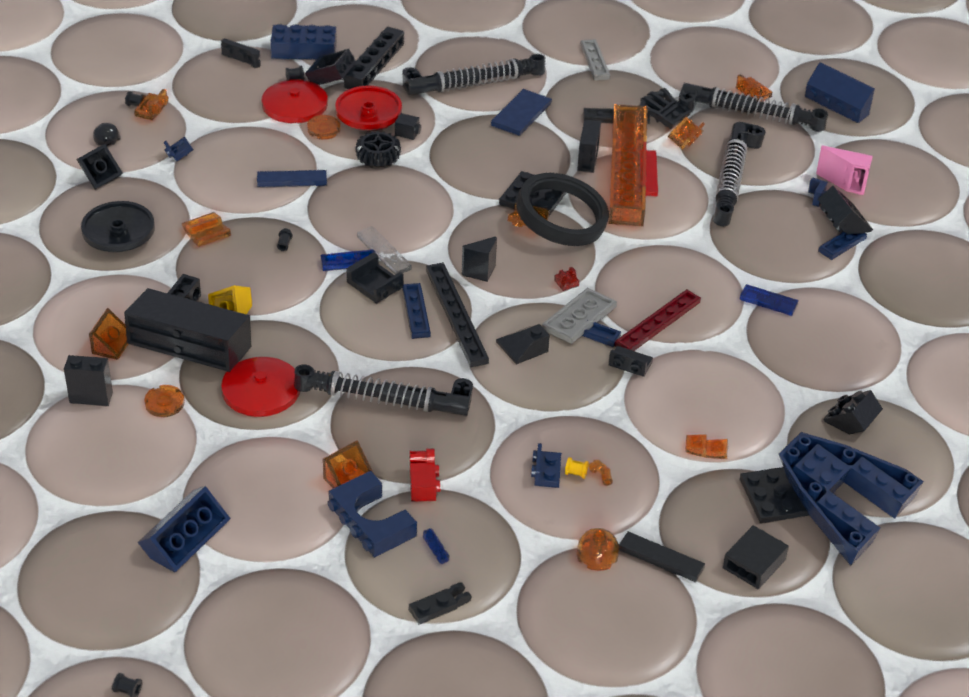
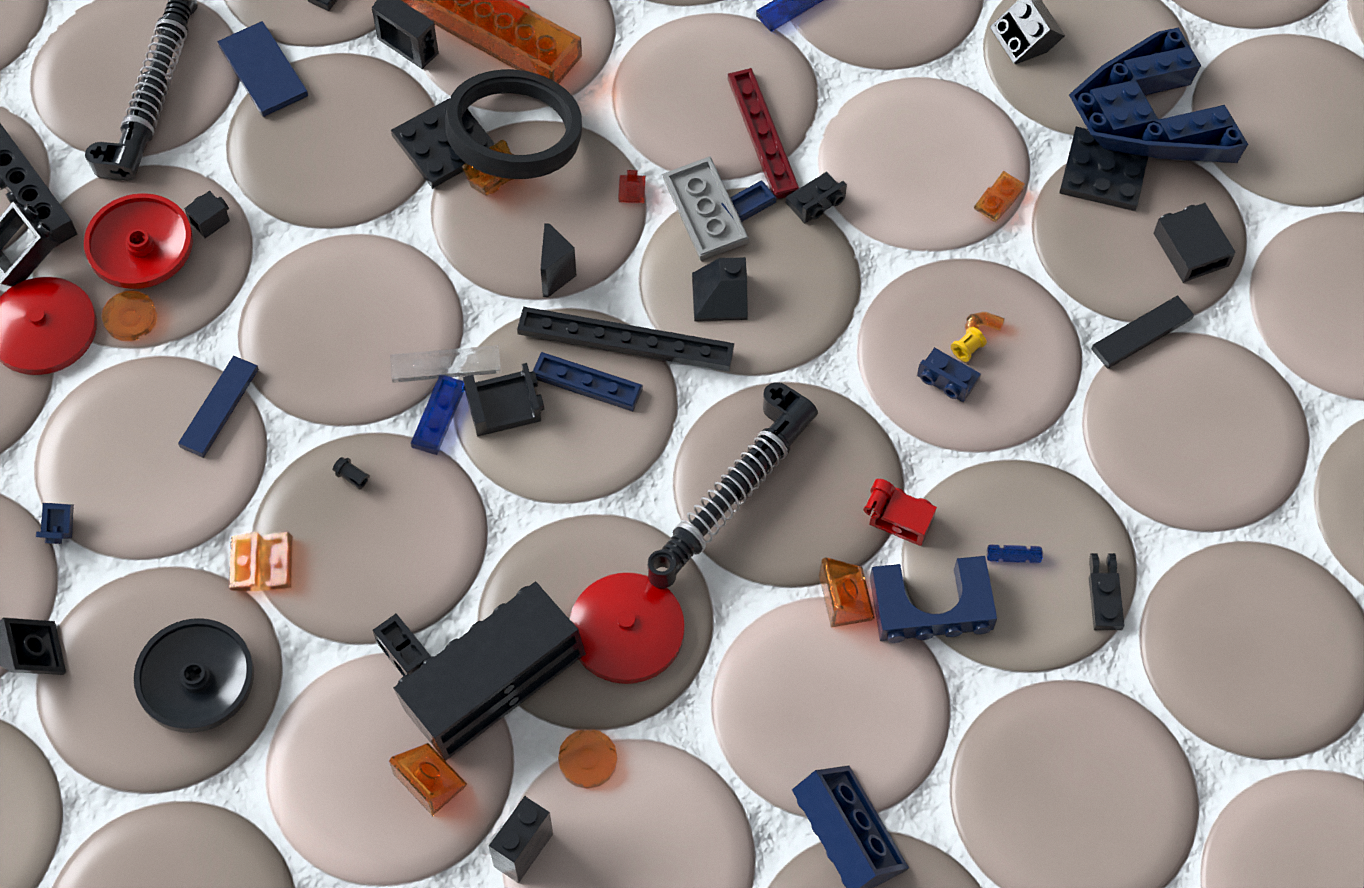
camera: 60 degrees left, 20 degrees up
(232, 298) = (454, 597): yellow slope -> none
(378, 149) = (235, 281): black gear -> none
(598, 549) = (1104, 389): clear orange cylinder -> none

